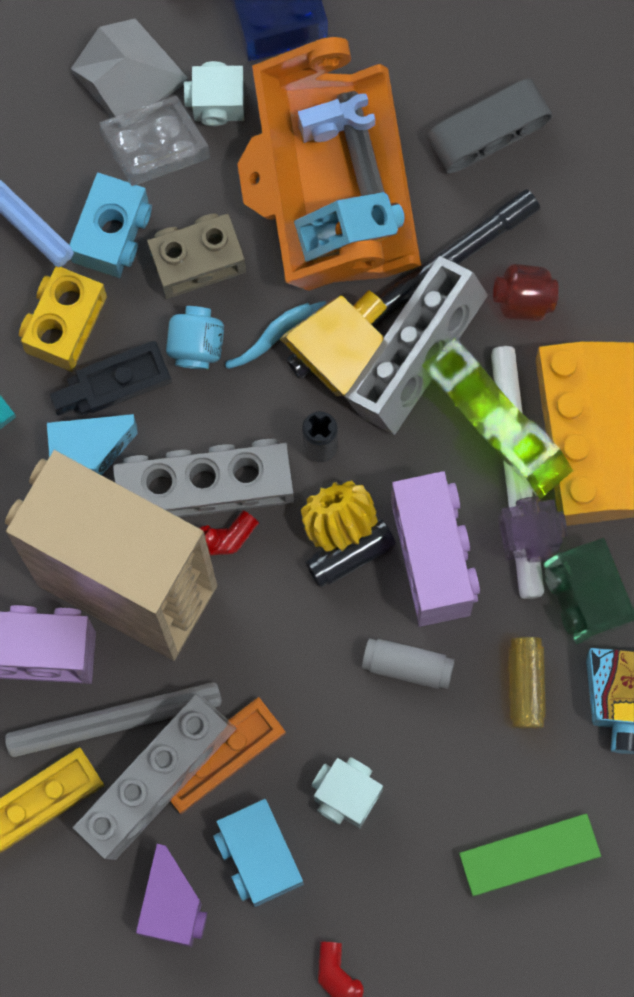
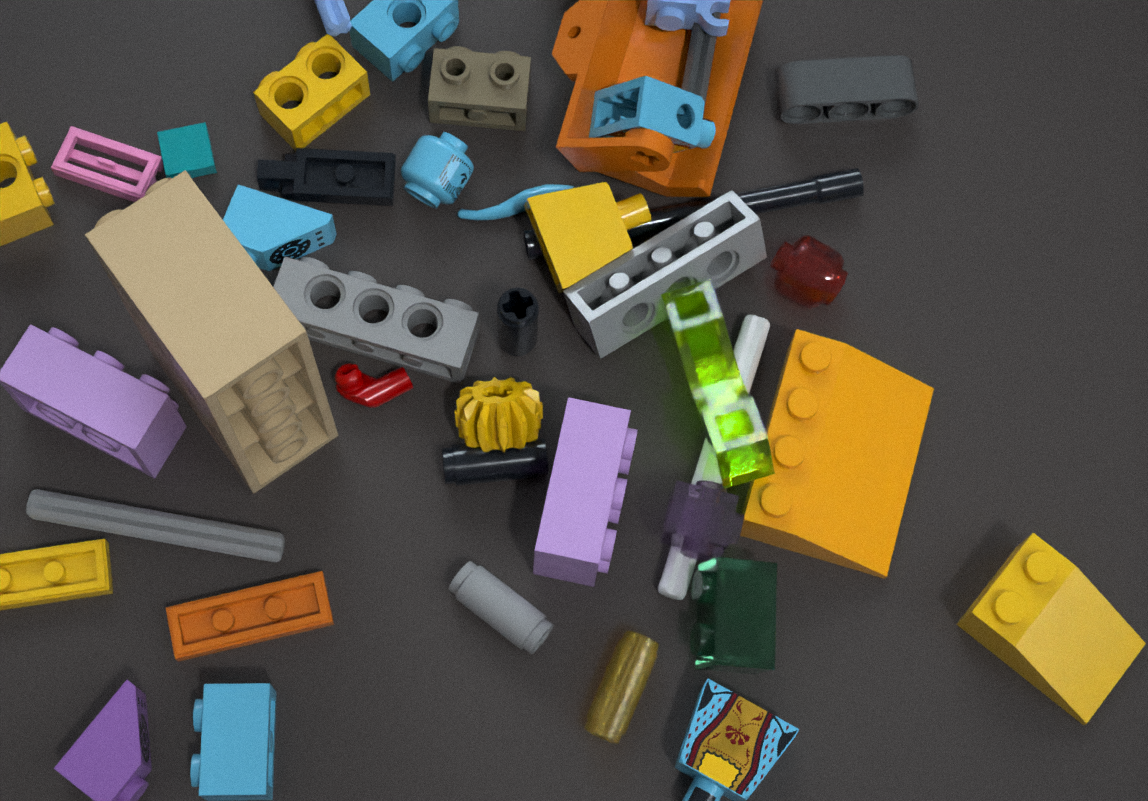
camera: 15 degrees right, 5 degrees down
(154, 778) = (161, 606): light grey brick -> none
(346, 791) = (365, 717): light aqua brick -> none

